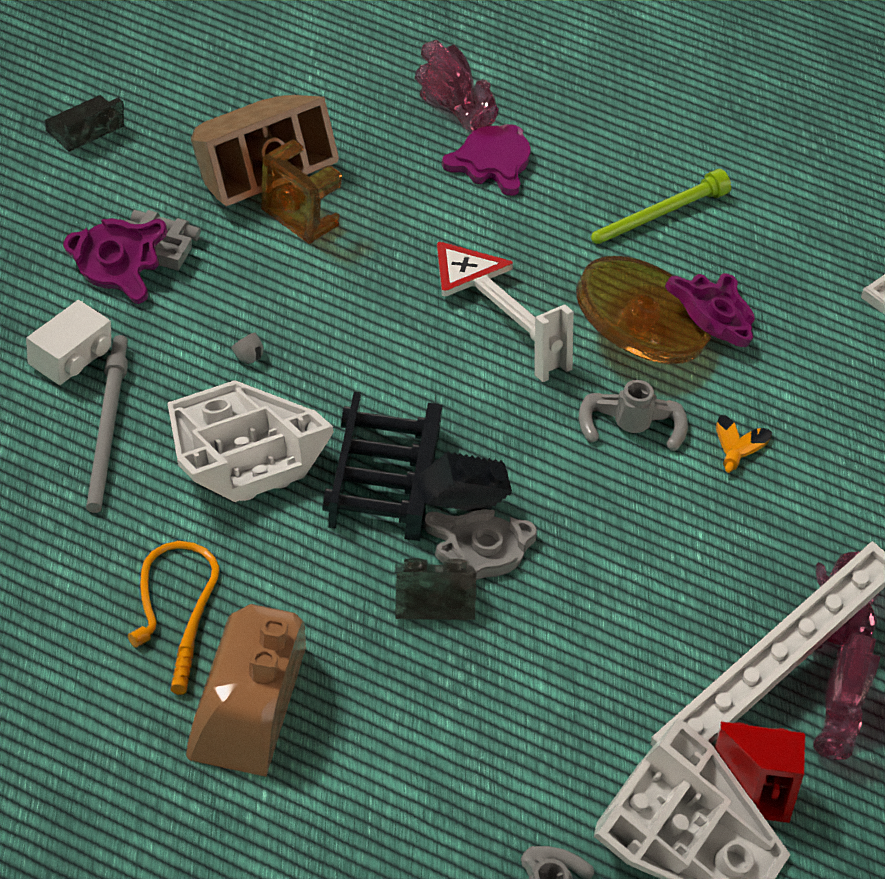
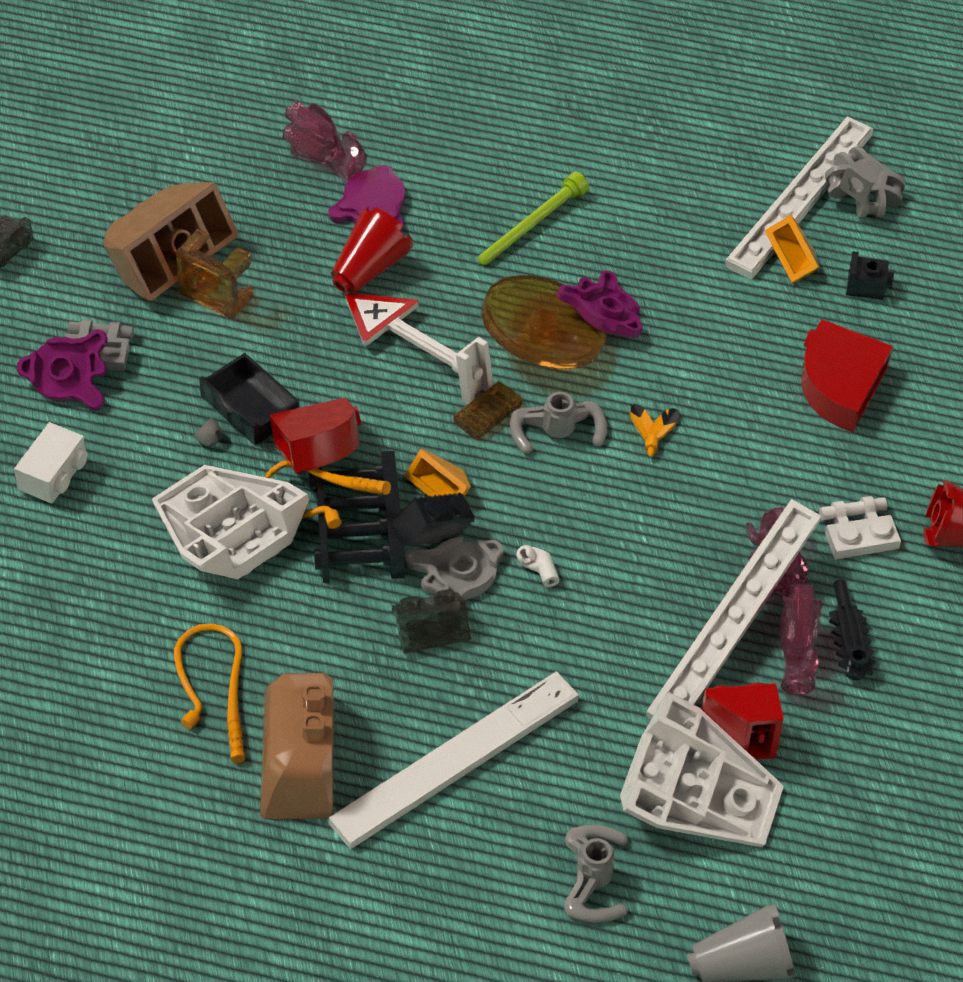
camera: 10 degrees left, 5 degrees up
(115, 370) = (97, 479): light grey bar -> none
(303, 324) = (246, 397): none -> black container
(363, 369) = (316, 433): none -> red brick
(386, 424) = (355, 483): none -> light orange piece
(417, 743) = (452, 760): none -> white tile
(474, 201) = (369, 250): none -> red cone
(481, 438) = (436, 475): none -> light orange slope
(559, 388) = (487, 410): none -> clear orange tile
(574, 555) = (540, 562): none -> white arm

